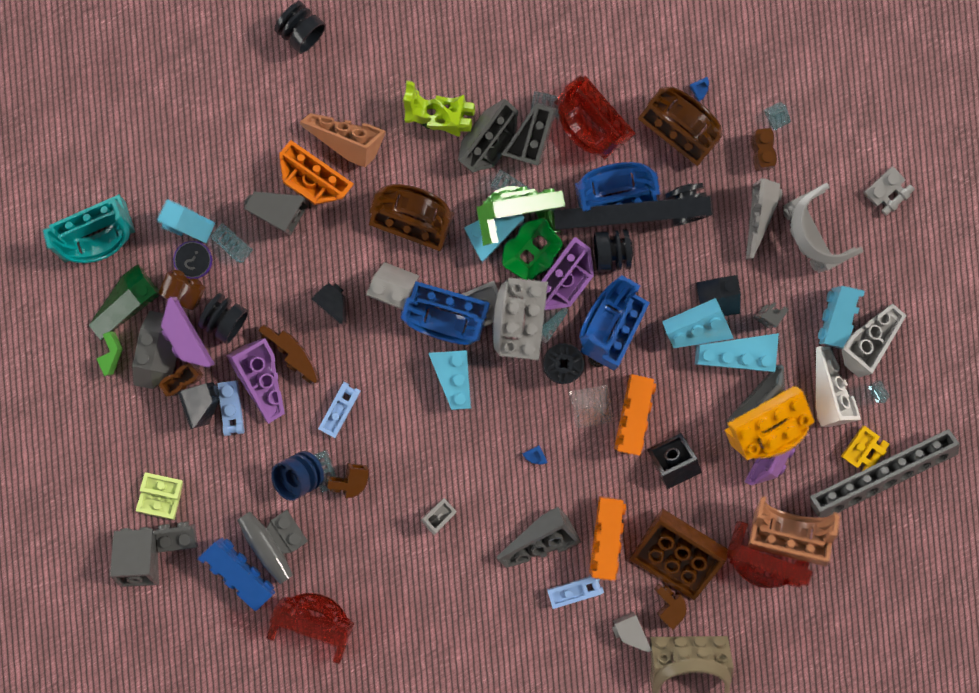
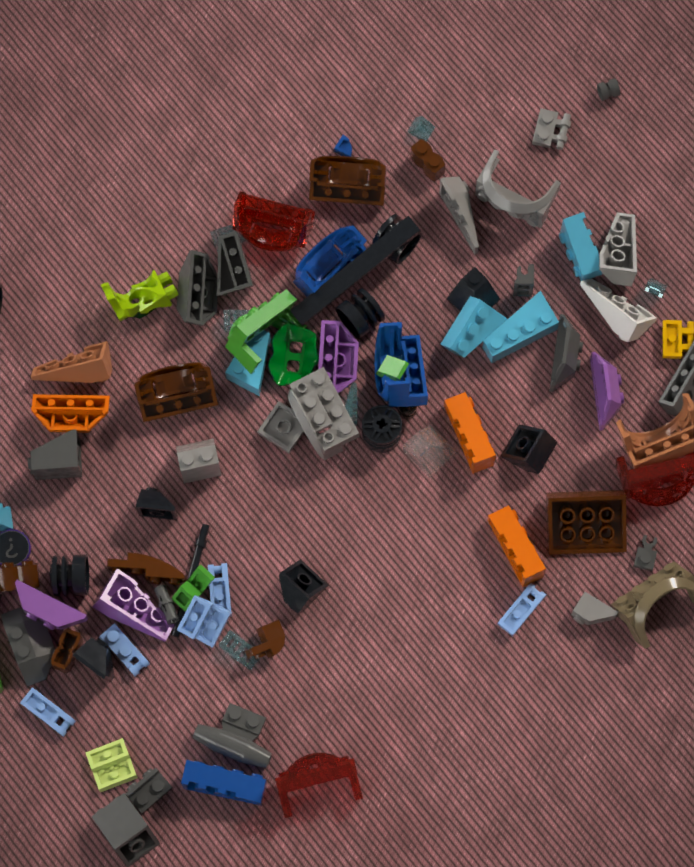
camera: 30 degrees left, 15 degrees down
(135, 418) = (47, 711): none -> light blue plate
(240, 251) = (47, 517): clear light blue slope -> none
(288, 393) = (166, 604): none -> dark grey pin
(297, 475) = (220, 662): dark blue wheel -> none
(308, 429) = (204, 621): none -> light blue slope
(317, 395) = (195, 585): none -> bright green slope
(350, 359) = (200, 544): none -> black bar
(407, 451) = (300, 586): none -> black slope
(438, 516) = (363, 623): light grey slope -> none
(444, 324) = (261, 462): blue piece -> none
(453, 376) = (297, 498): medium azure wedge -> none
(535, 455) = (411, 521): blue tile -> none
(546, 534) = (463, 582): dark grey wedge -> none
(605, 320) = (392, 368): none -> slope
(674, 610) = (614, 567): reddish brown brick -> none
(707, 615) = (646, 556): none -> dark grey plate
(746, 429) = (597, 370): light orange piece -> none
(963, 188) = (608, 89): none -> dark grey wheel

